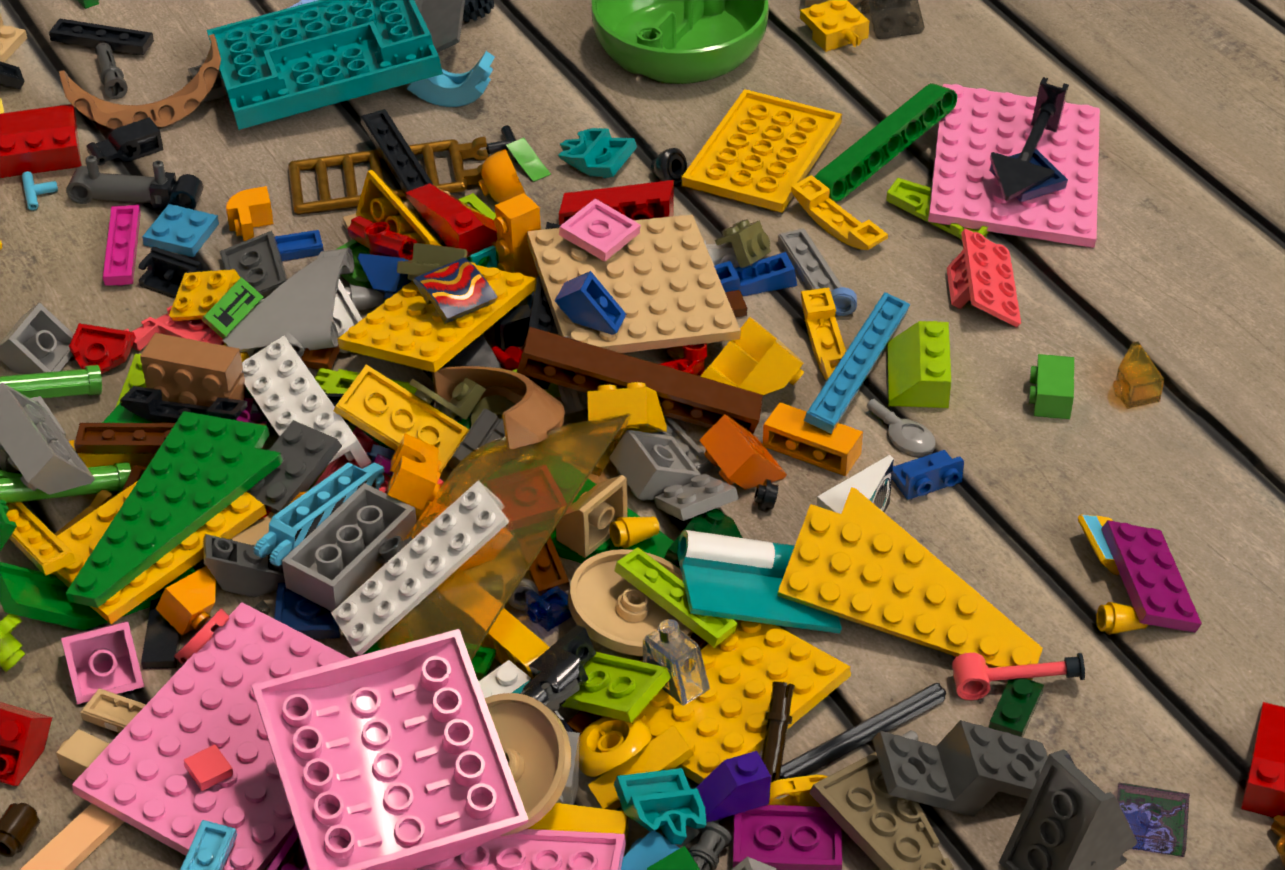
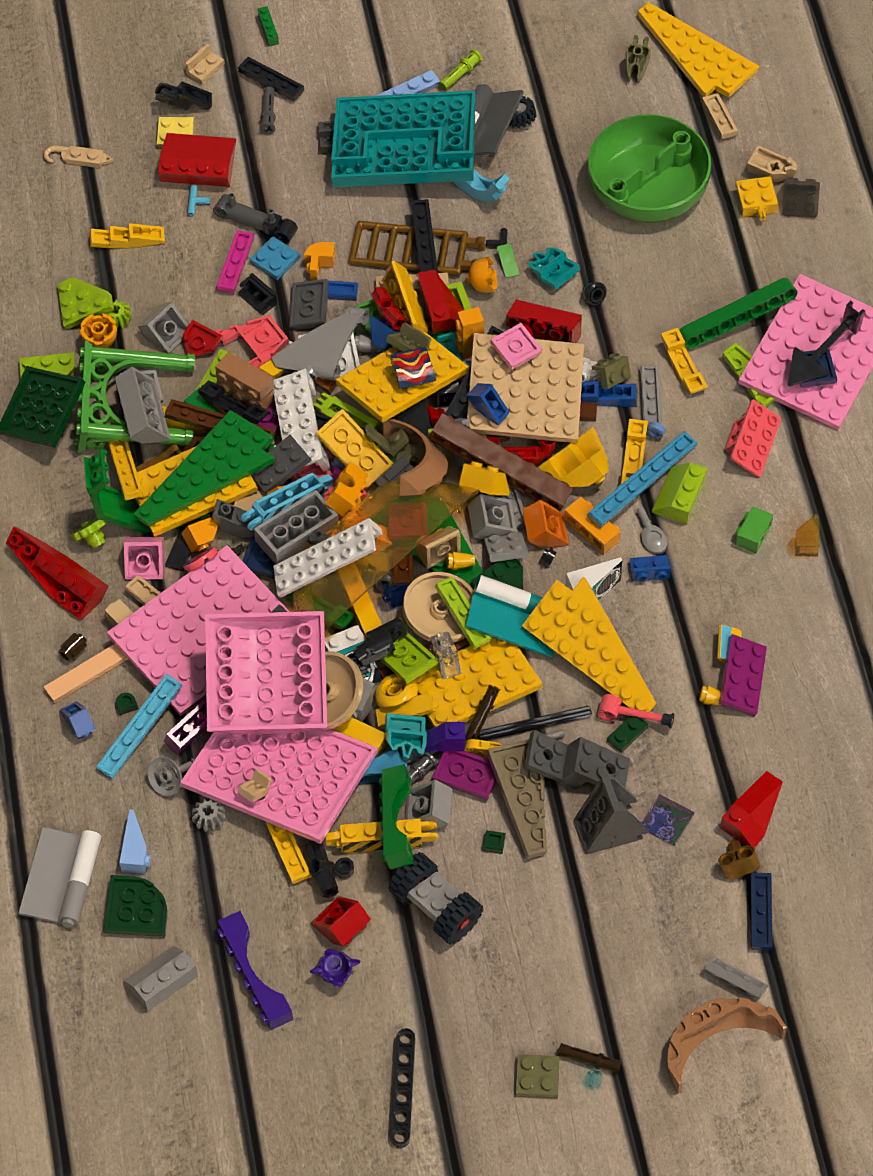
camera: 20 degrees right, 15 degrees up
(128, 142) = (261, 178): black piece -> none
(161, 112) = (281, 155): medium nougat windscreen -> none
(201, 292) = (271, 320): yellow bracket -> none
(208, 767) = (178, 643): coral tile -> none
(232, 308) = (282, 337): bright green tile -> none
(762, 150) = (660, 293): yellow plate -> none

